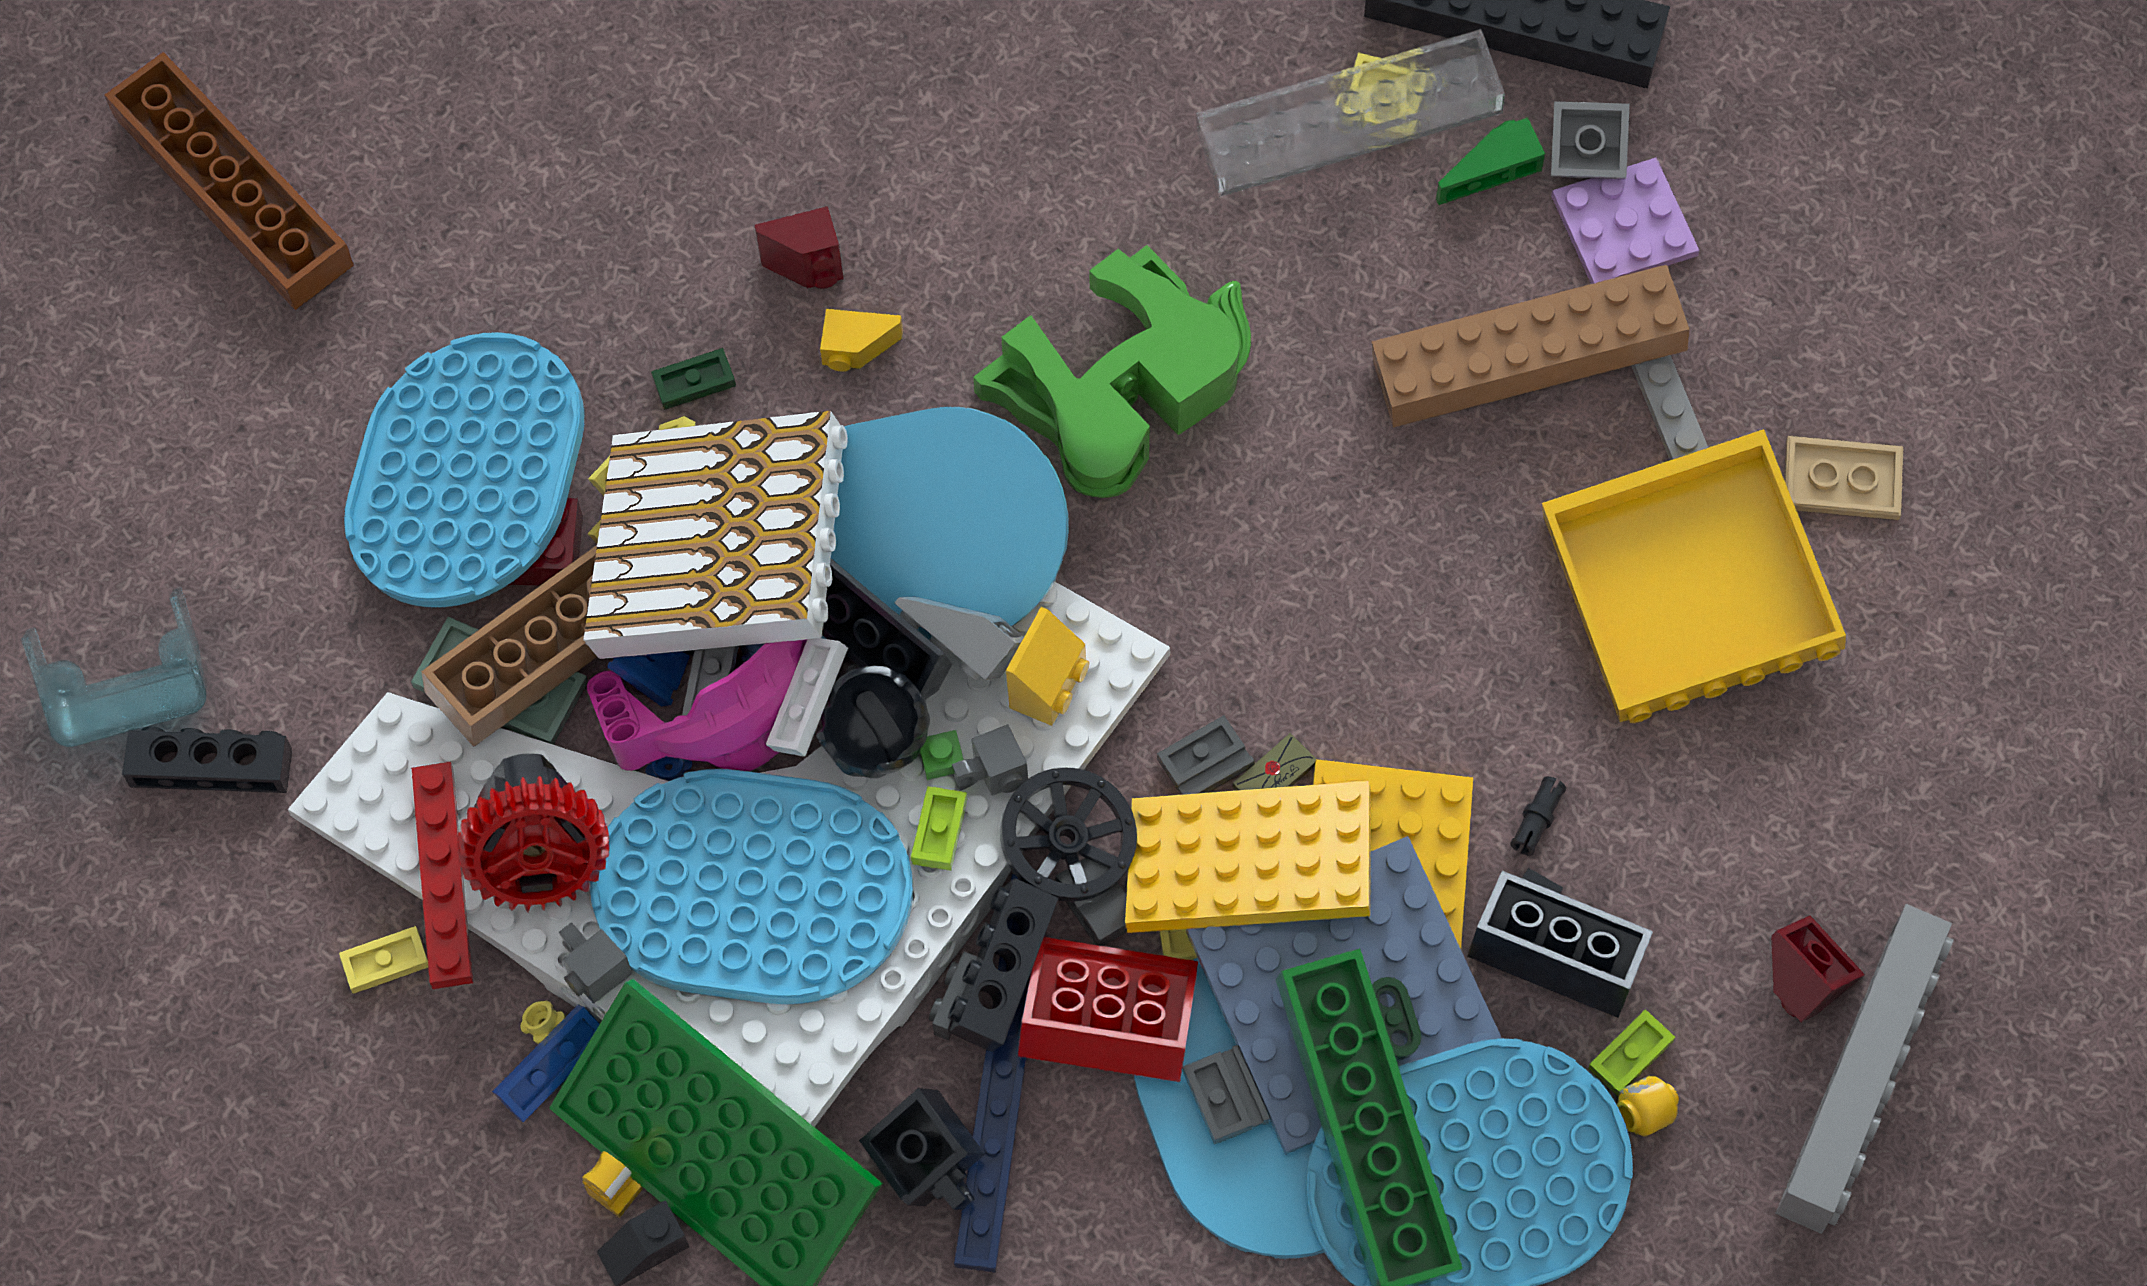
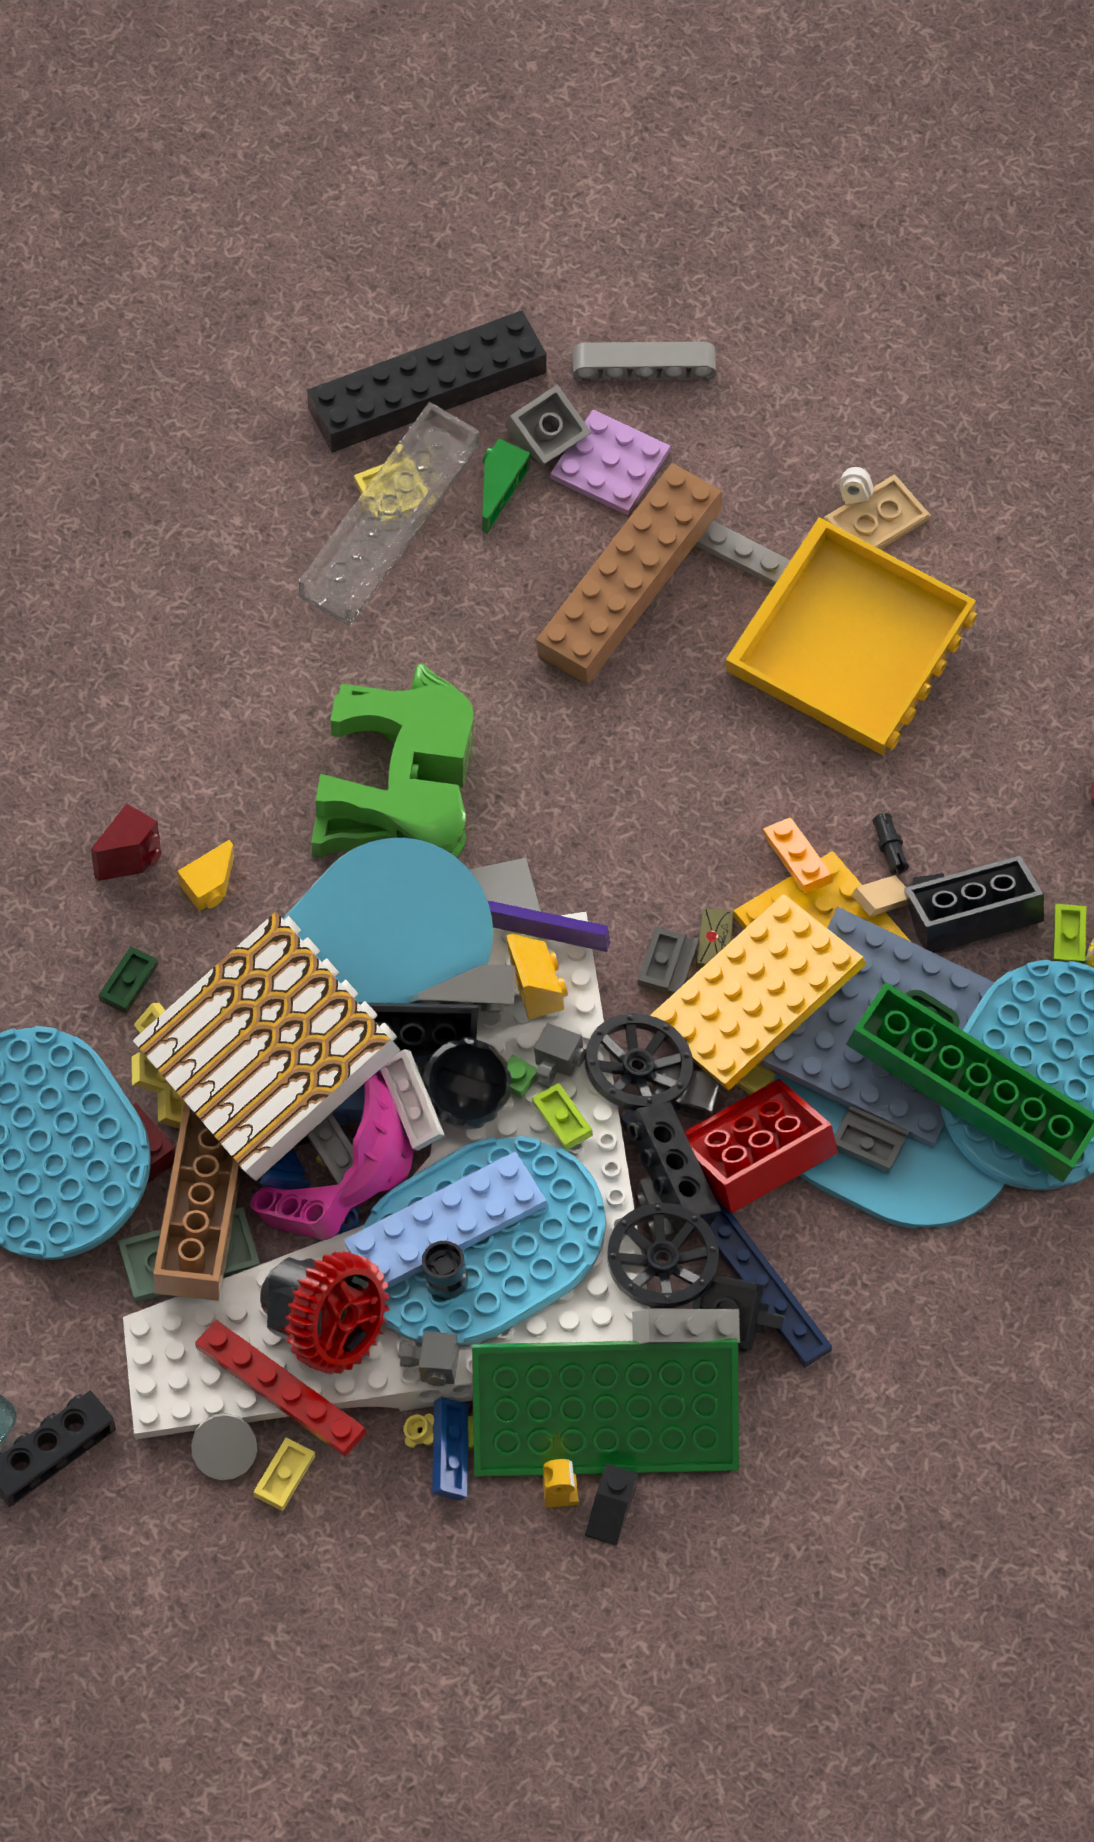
camera: 45 degrees left, 5 degrees down
(352, 888) = (224, 1446): none -> light grey tile
(676, 885) = (444, 1270): none -> black wheel
(732, 841) = (458, 1214): none -> light blue plate
(845, 1130) = (684, 1325): none -> light grey brick
(893, 1034) = (662, 1251): none -> black wheel
(1110, 631) = (549, 926): none -> tile
(1115, 567) = (508, 883): none -> light grey tile
(1430, 754) = (797, 855): none -> light orange plate
(1473, 859) = (881, 895): none -> tan tile
(1753, 145) = (644, 360): none -> light grey beam
(1848, 428) = (855, 485): none -> white piece

